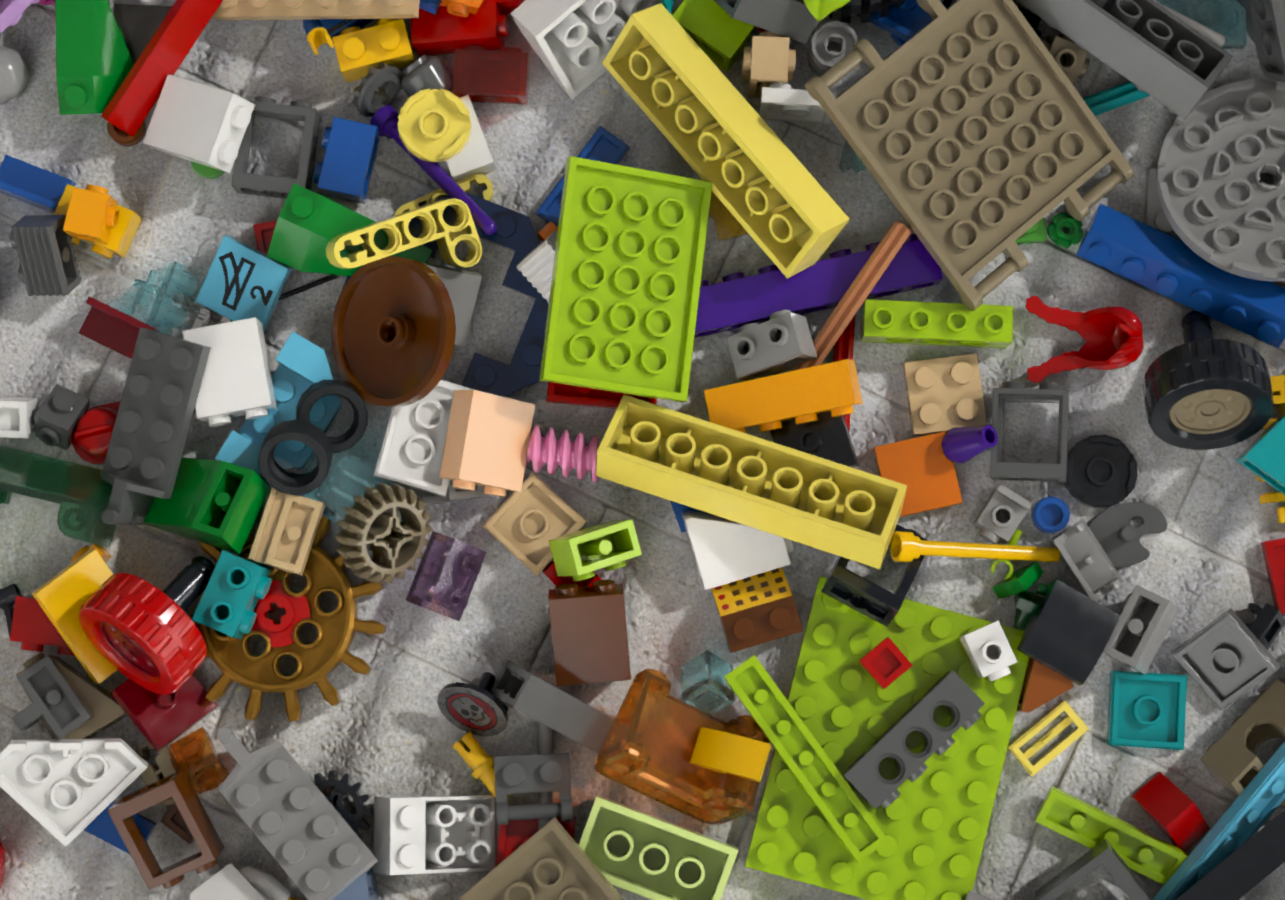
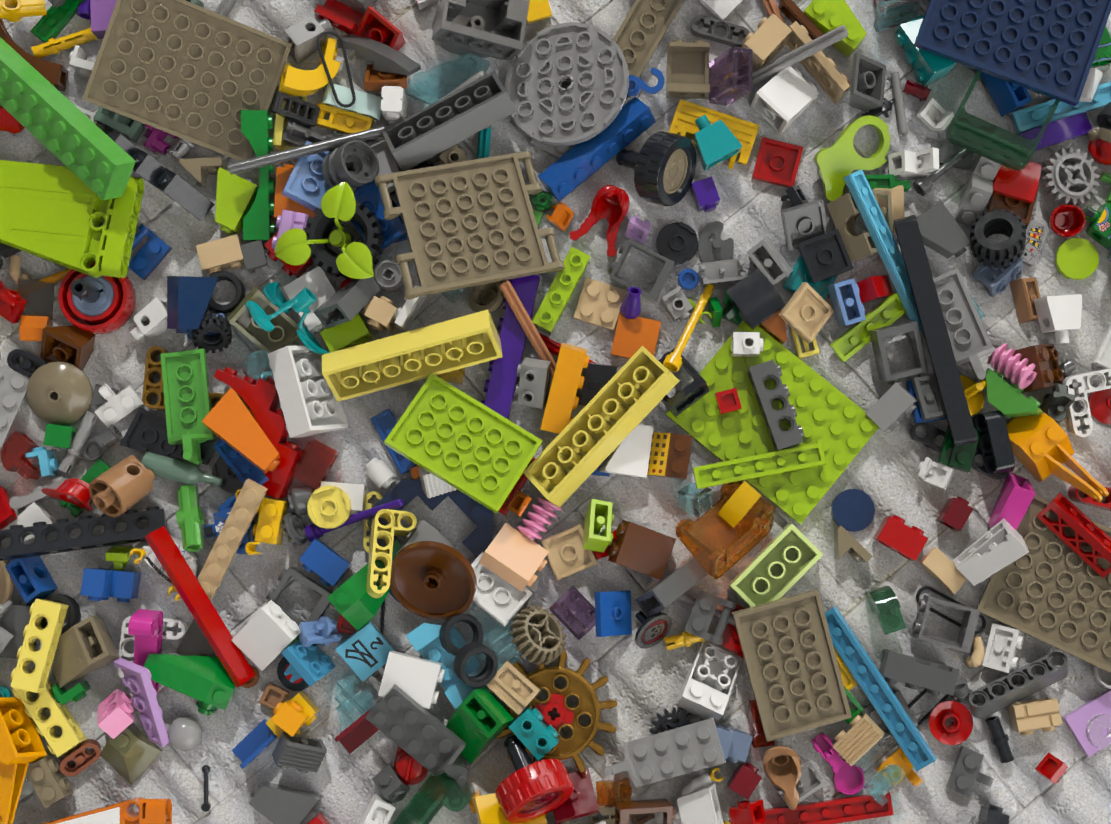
camera: 65 degrees left, 0 degrees up
(48, 86) = (205, 709): none -> green plate
(115, 177) = (273, 696): none -> medium nougat tile
(181, 199) = (303, 666): none -> dark azure plate
(239, 200) = (321, 631): none -> medium blue hips
(471, 634) = (613, 613): none -> blue plate
(522, 179) = (380, 473): none -> white brick
(574, 411) = (519, 503): none -> orange slope
(869, 212) = (486, 297): none -> dark tan piece
(1054, 270) = (561, 216): none -> orange tile
(1086, 725) = (806, 312): none -> tan plate
(1091, 398) = (637, 229): none -> lavender tile
(1133, 781) = (846, 302): none -> medium blue brick
(1190, 714) = (825, 256): none -> black plate
(1198, 479) = (705, 194): none -> dark purple brick

